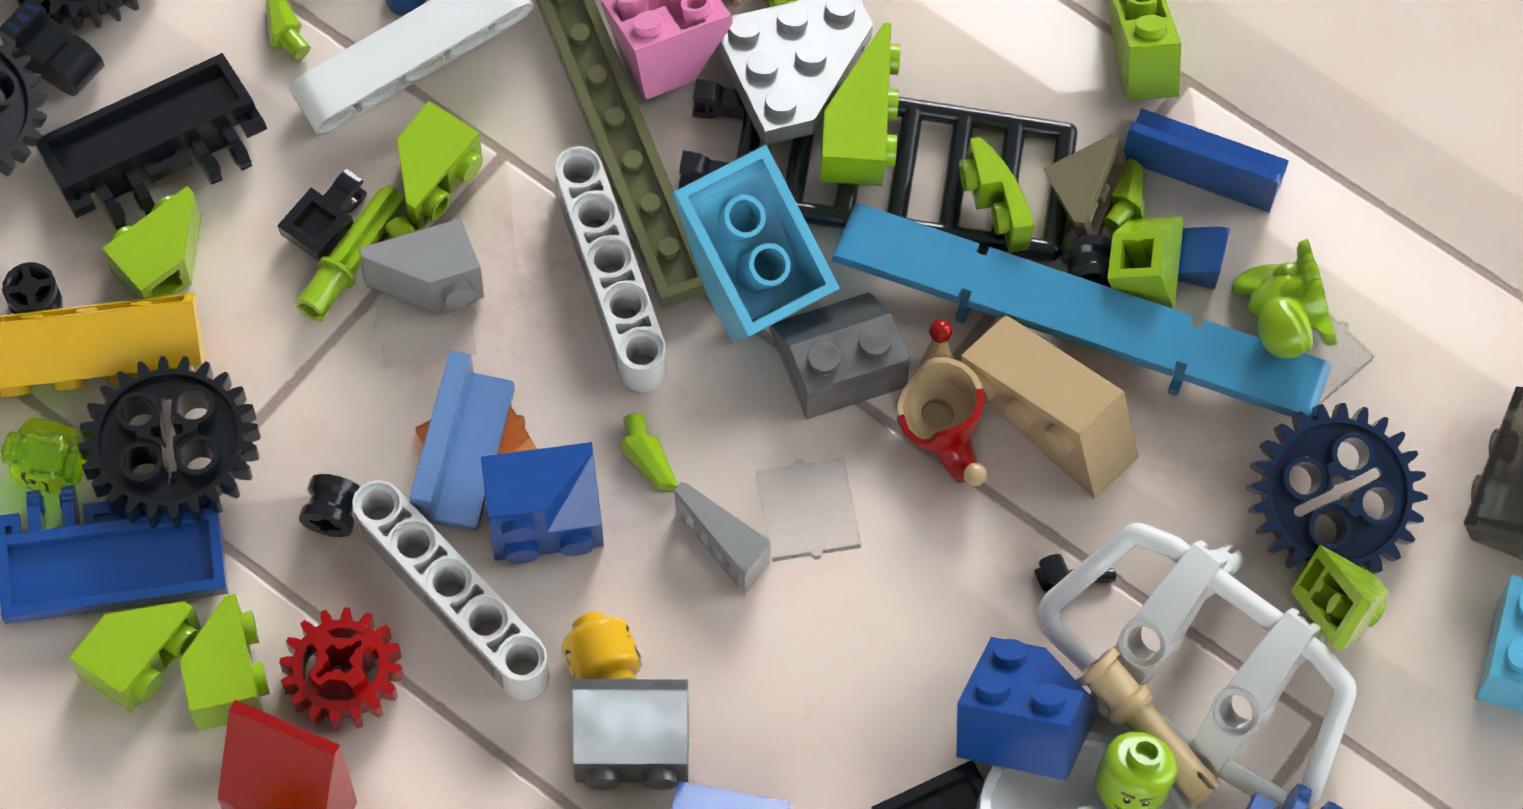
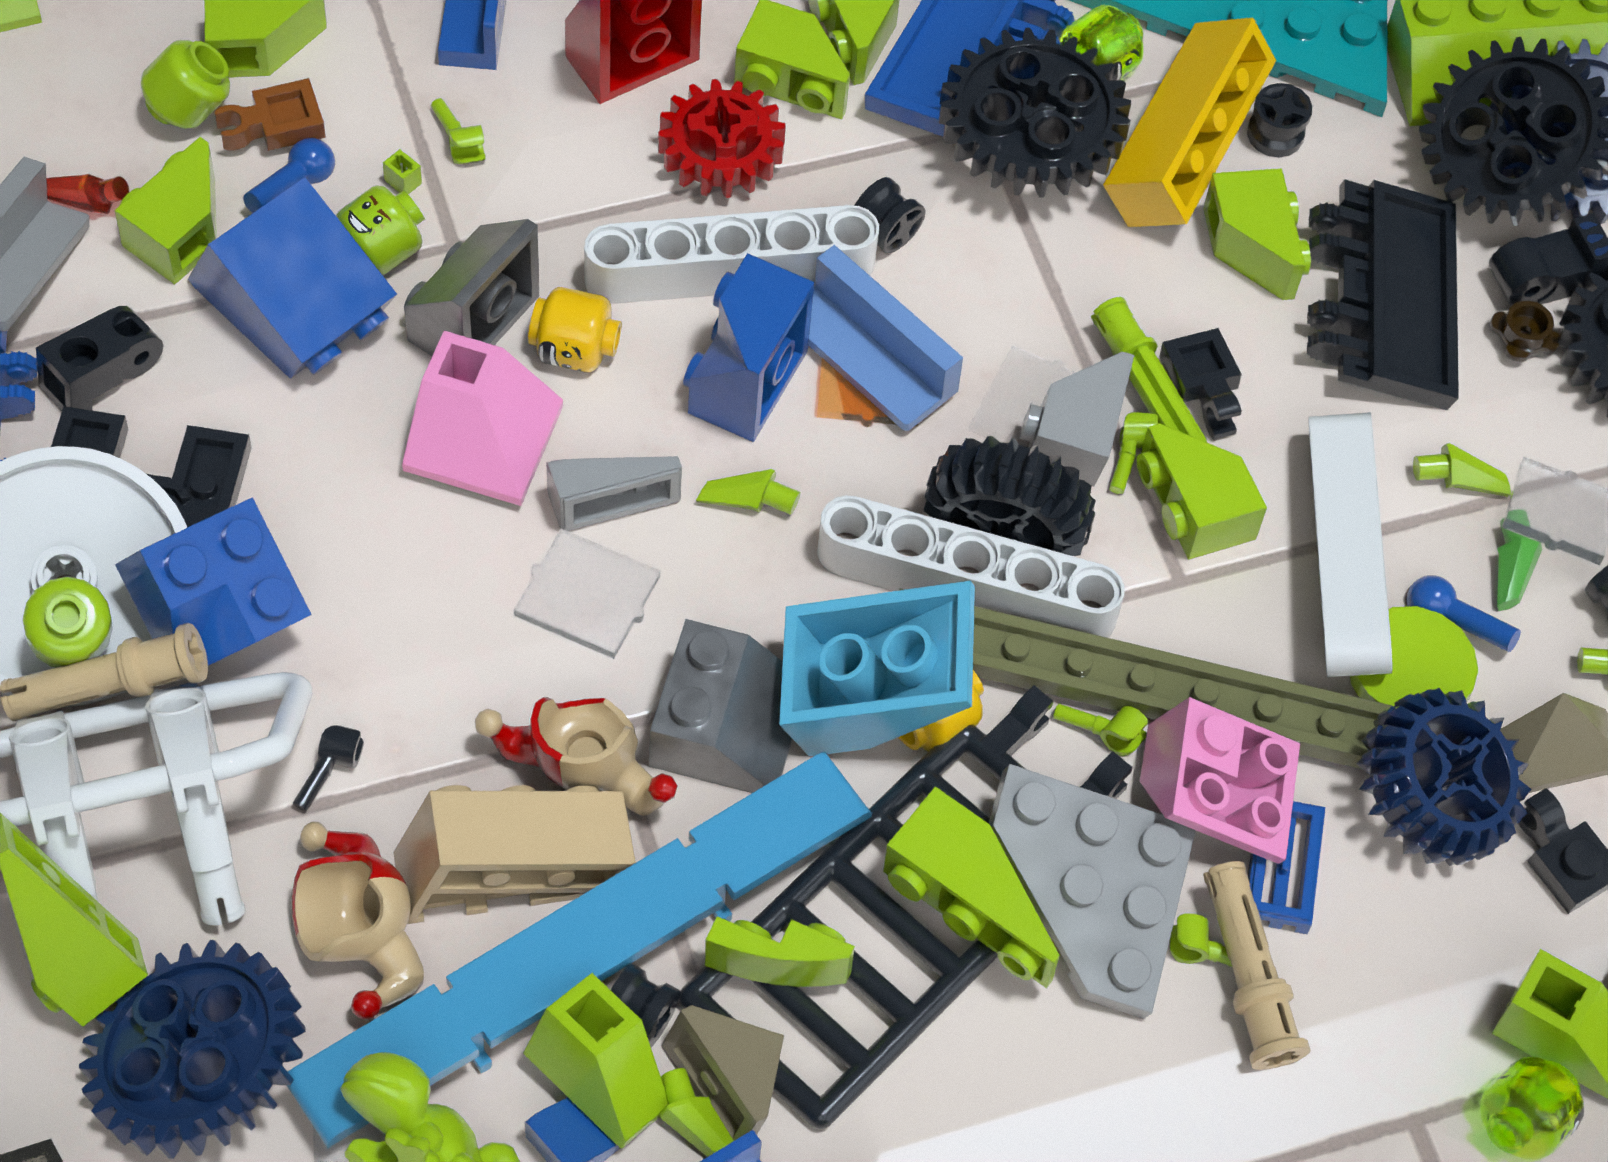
camera: 120 degrees right, 5 degrees down
(121, 31) = (1530, 318): none -> dark brown plate
(551, 255) = (1012, 494): none -> black gear
(659, 114) = (1120, 734): none -> lime hand
(738, 659) = (480, 420): none -> bright pink slope
(1168, 467) = (356, 911): none -> tan piece

